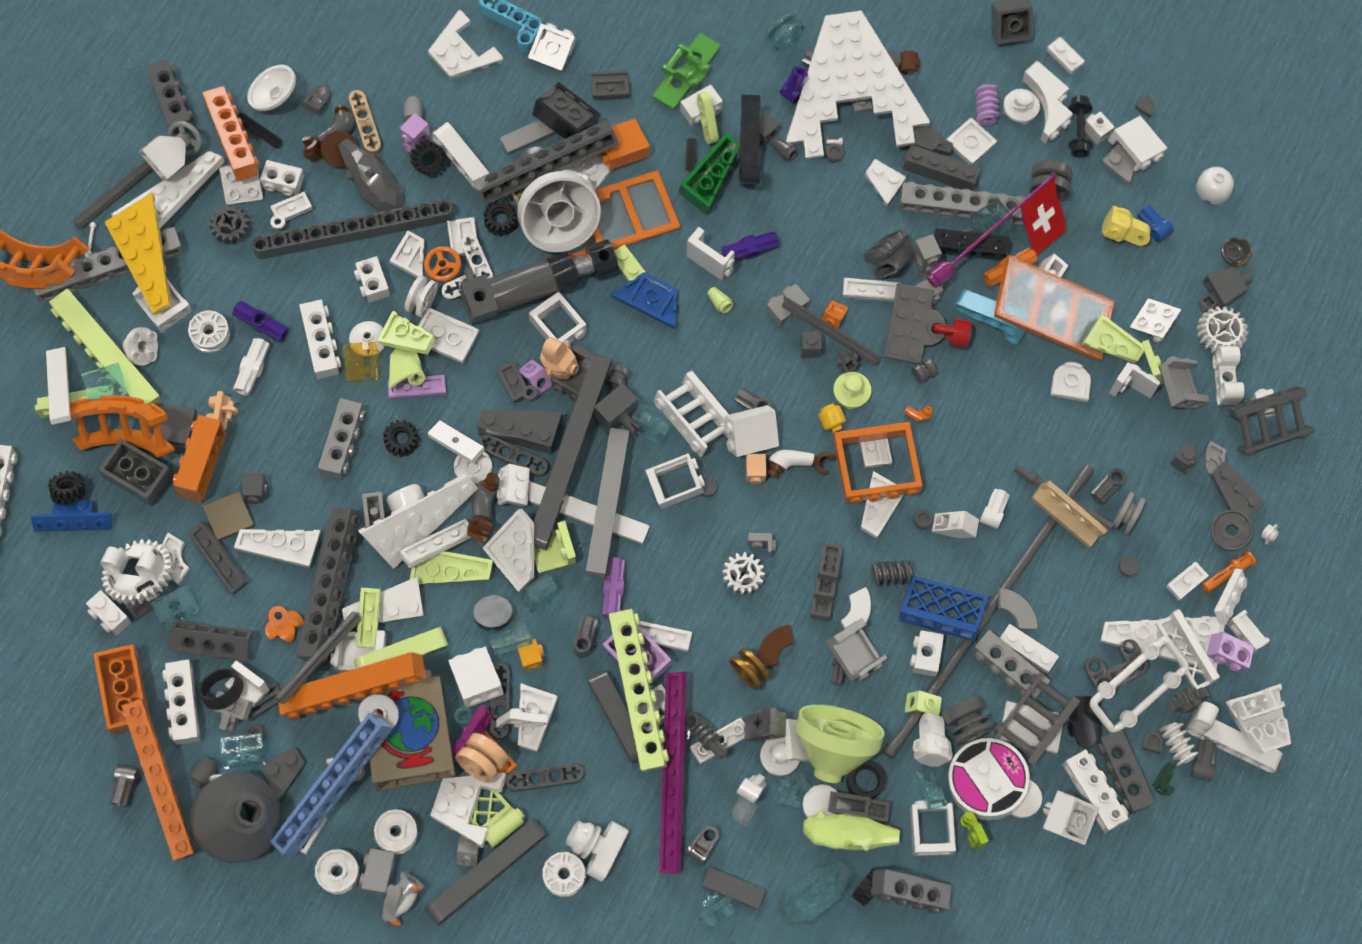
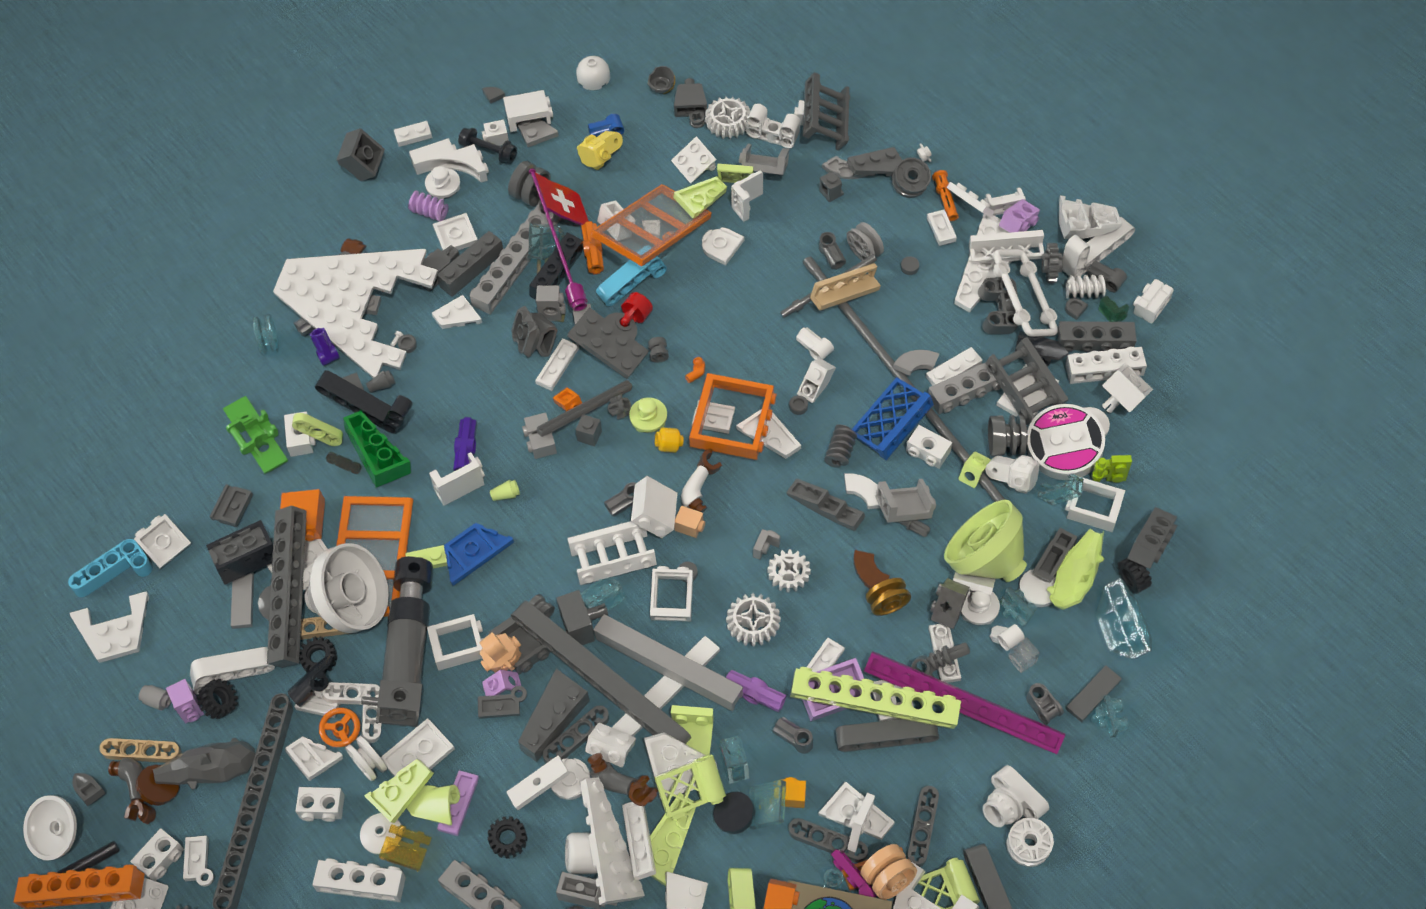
camera: 60 degrees left, 10 degrees down
(467, 222) = (302, 689): none -> black panel
(476, 677) = (796, 851): white panel -> none
(509, 577) = (707, 782): none -> yellowish green piece
(686, 575) = (770, 619): none -> white gear
(880, 778) = (1041, 533): black tyre -> none
(1194, 815) = (1153, 300): none -> white brick

